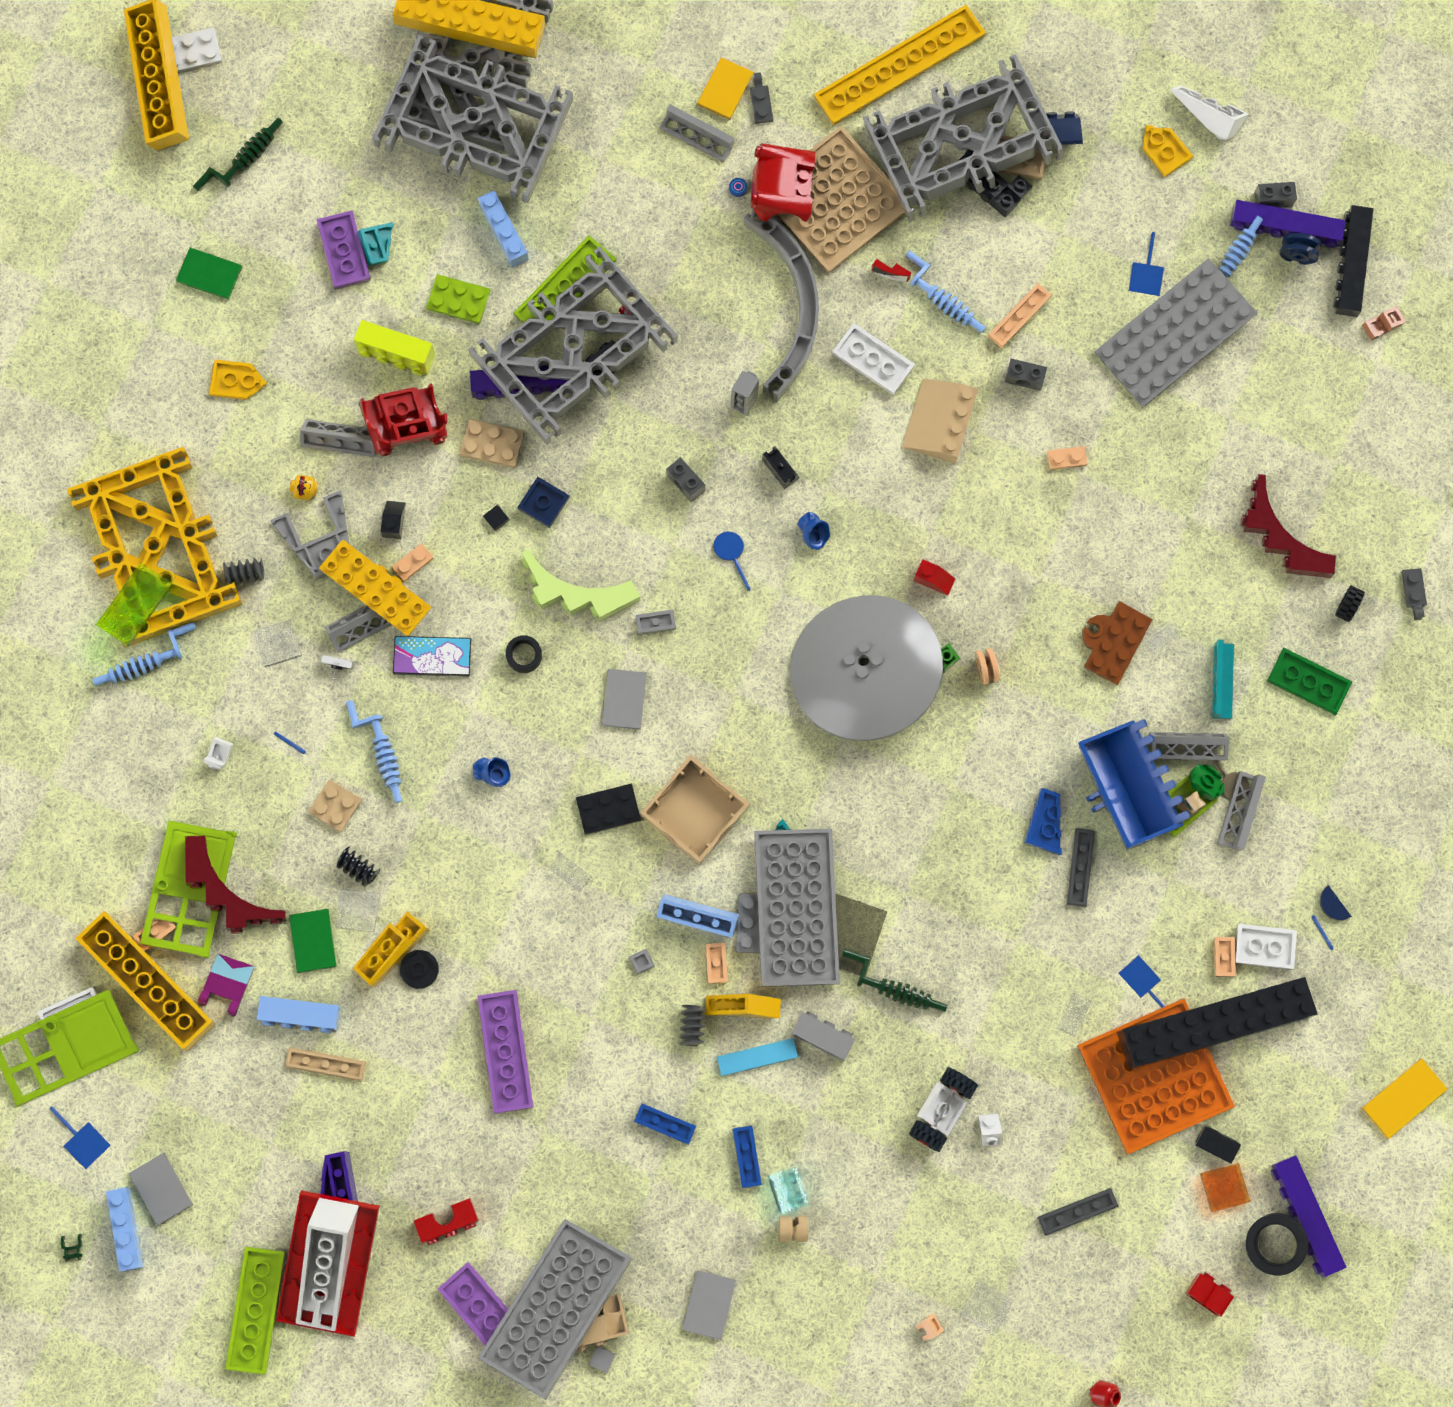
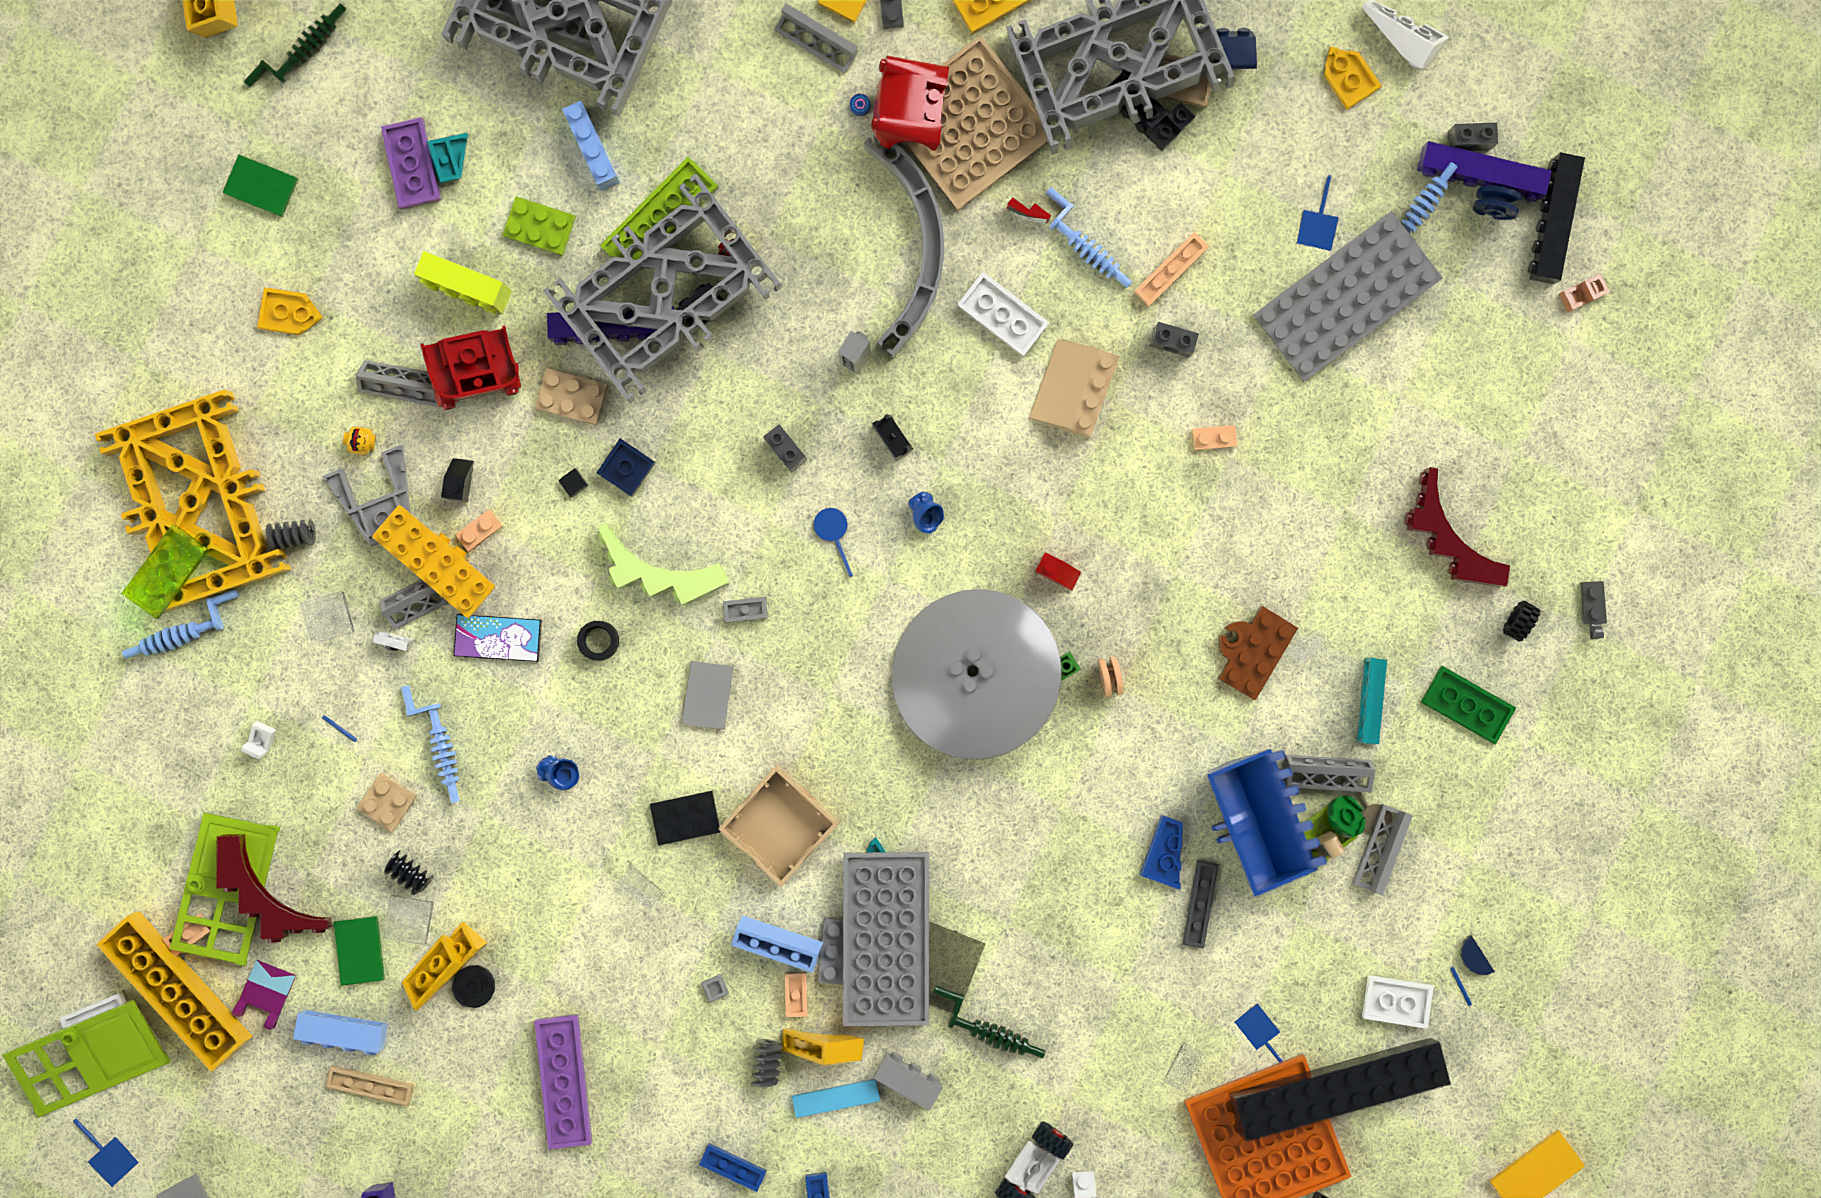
camera: 10 degrees right, 10 degrees up
(1224, 956) = (1351, 1010): light nougat plate -> none

